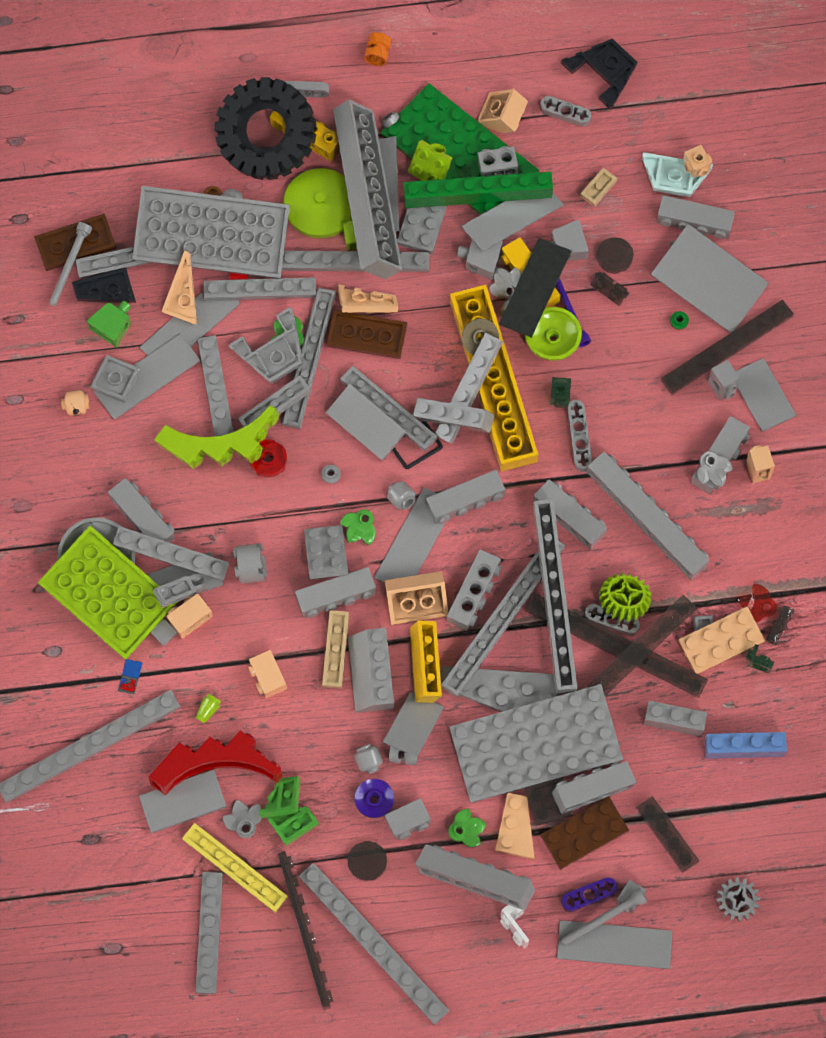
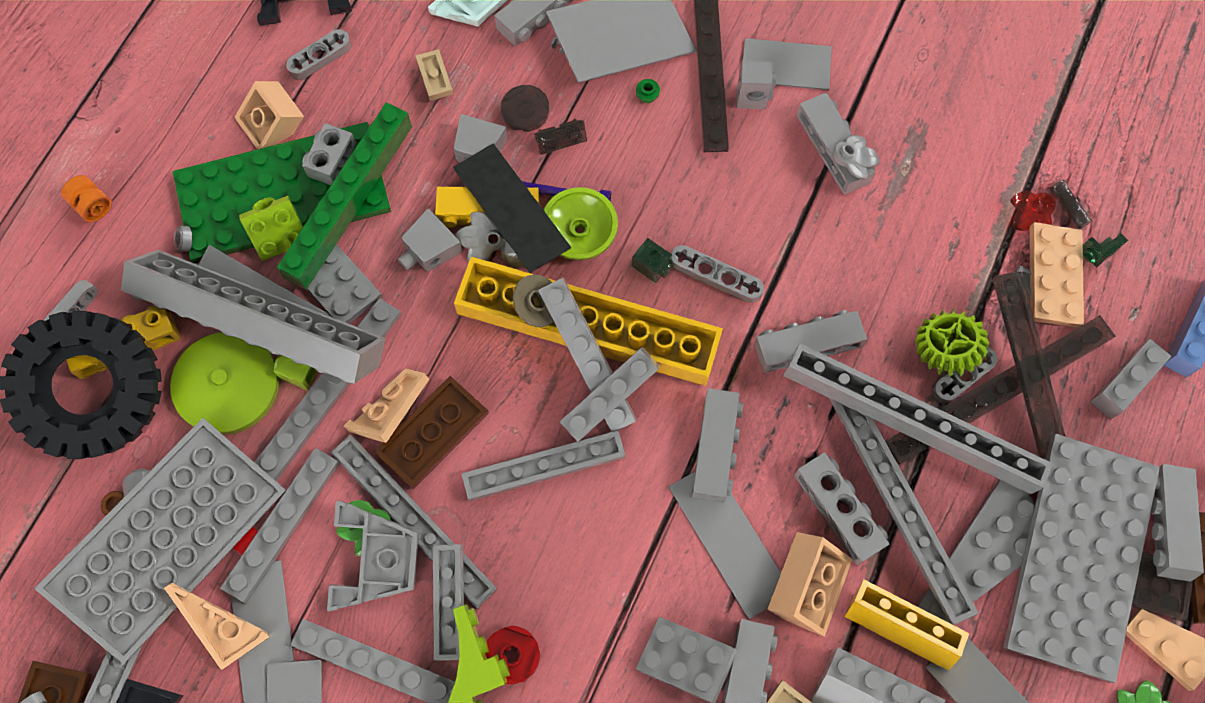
camera: 60 degrees left, 0 degrees up
(331, 479) = (583, 597): light grey plate -> none
(357, 528) = (675, 600): bright green plate -> none
(366, 422) = (544, 502): light grey tile -> none
(401, 495) = (667, 520): light grey head -> none
(423, 457) = (630, 469): black piece -> none
(508, 219) = (404, 189): light grey window -> none
(648, 516) = (862, 259): light grey brick -> none
(759, 464) = (875, 108): light nougat brick -> none

